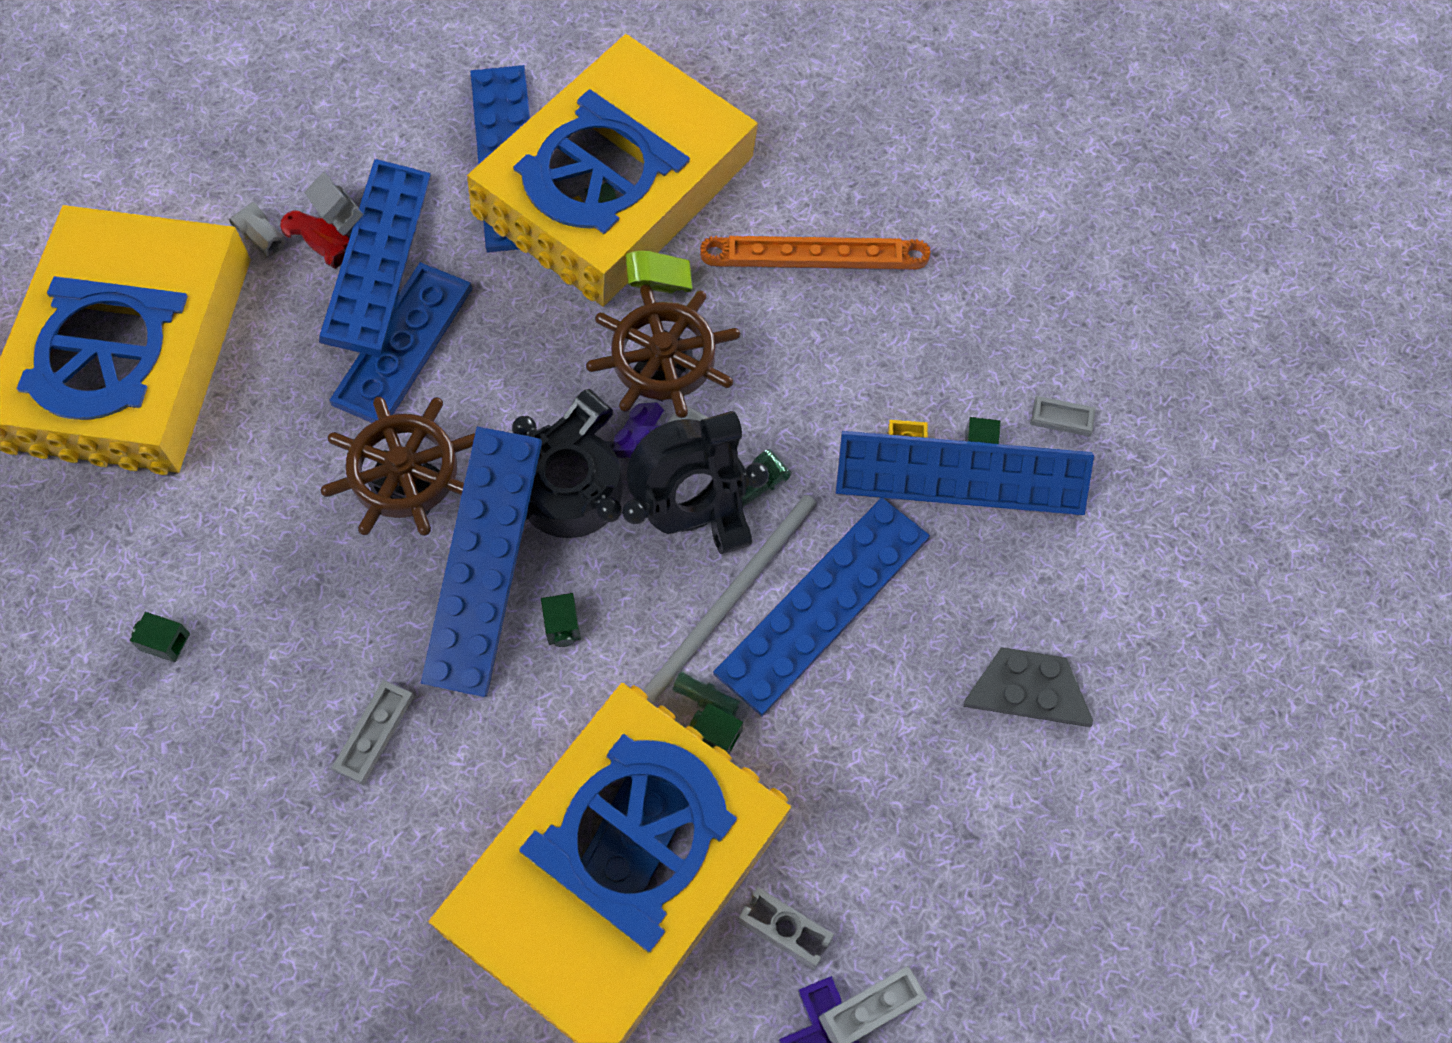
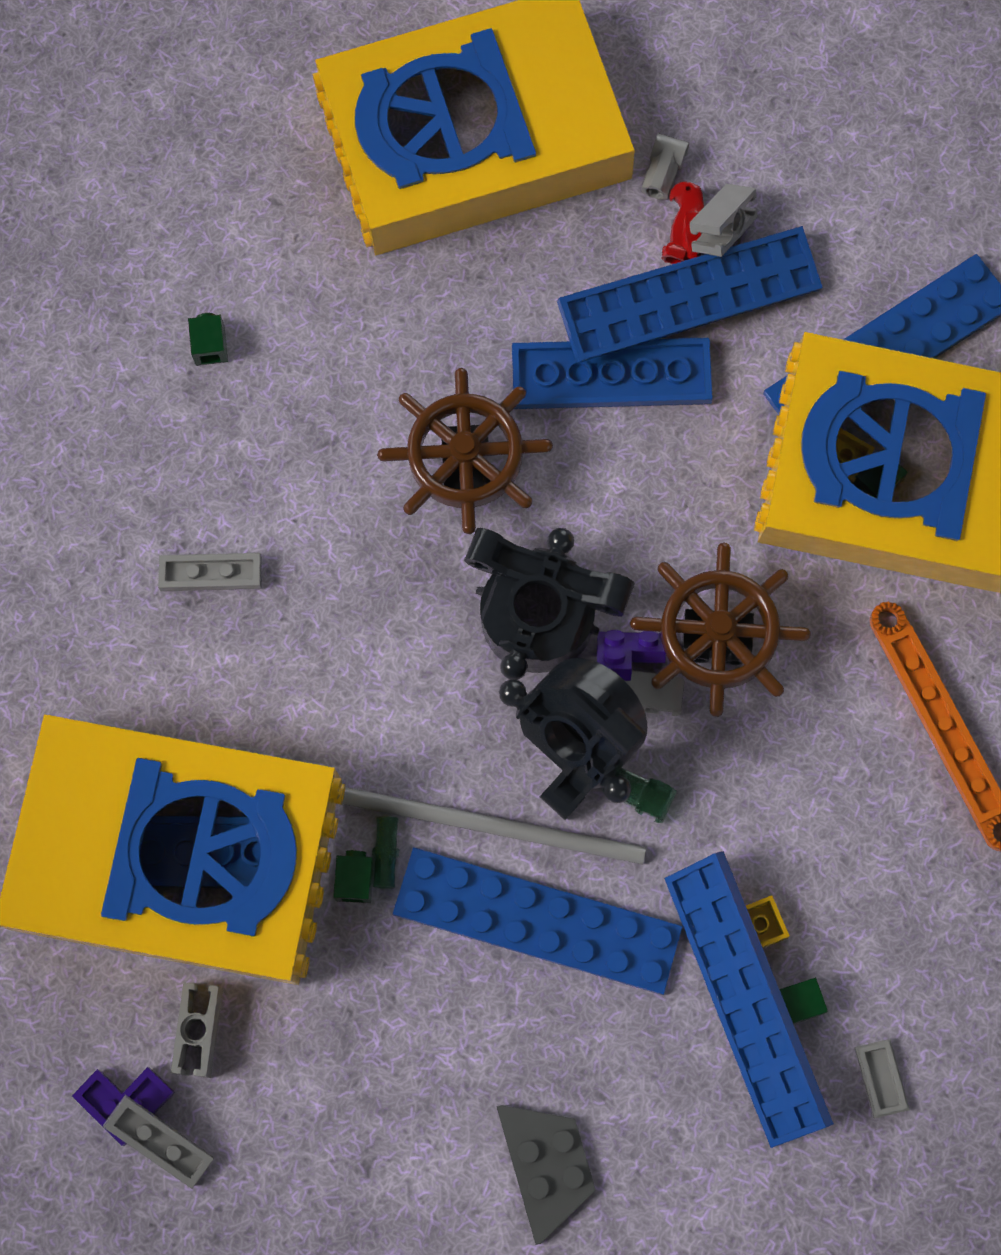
camera: 70 degrees right, 10 degrees up
(481, 561) = (407, 576): blue plate -> none
(560, 619) = (393, 679): dark green brick -> none
(659, 271) = (814, 578): lime beam -> none

